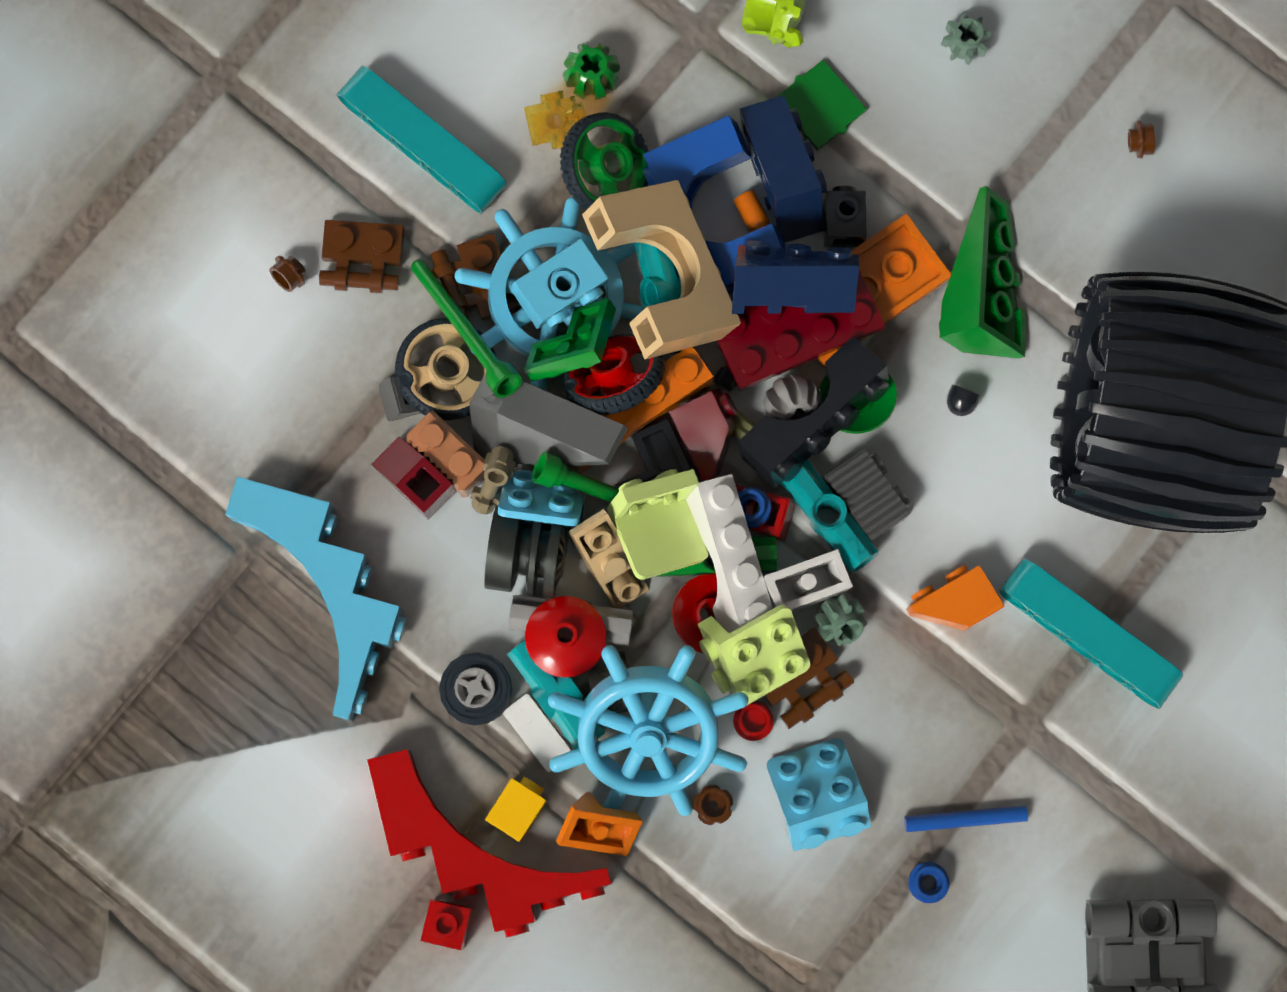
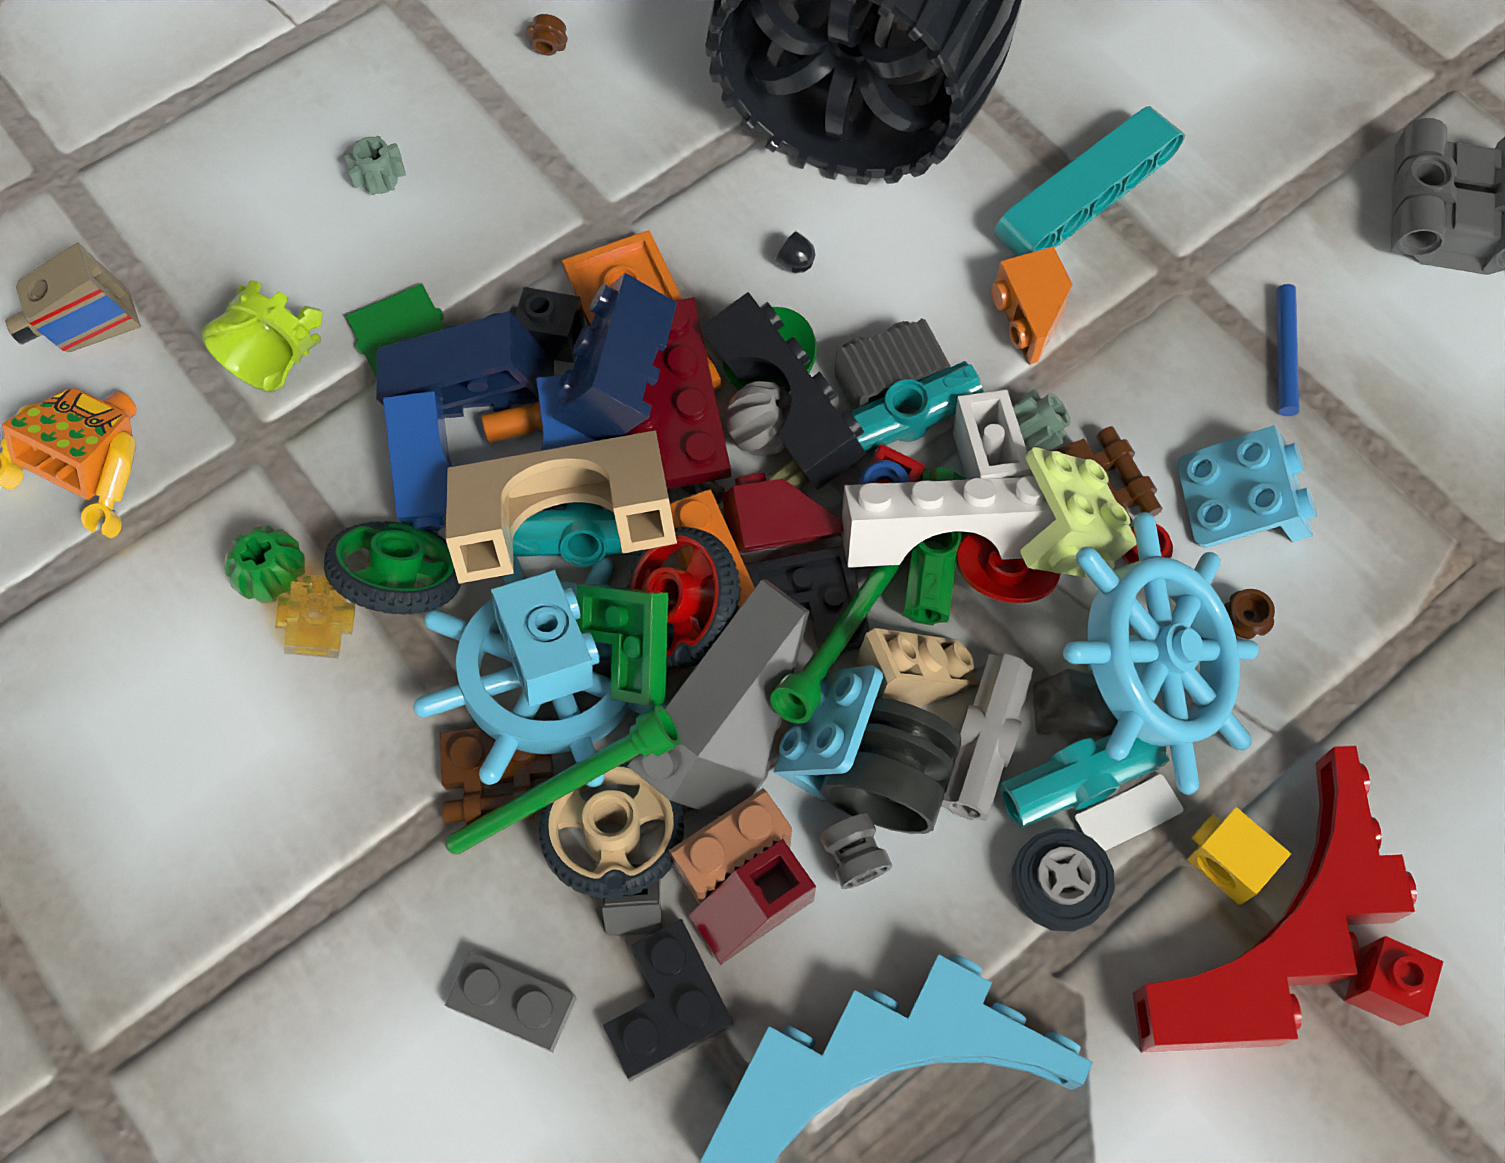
camera: 75 degrees left, 15 degrees down
(288, 273) = (410, 1029): reddish brown plate -> none
(320, 333) = (511, 1001): none -> dark grey plate
(344, 446) = (684, 1006): none -> black plate
(361, 244) = (400, 915): reddish brown plate -> none
(421, 139) = (276, 802): teal beam -> none
(457, 545) = (855, 851): none -> dark grey wheel
(498, 469) = (778, 774): dark tan bar -> none
(571, 657) = (1011, 762): red dish -> none
(599, 828) = (1274, 756): orange slope -> none
(658, 524) = (895, 584): yellowish green bracket -> none
(941, 882) = (1368, 389): blue plate -> none
(980, 296) = (694, 214): green wedge -> none

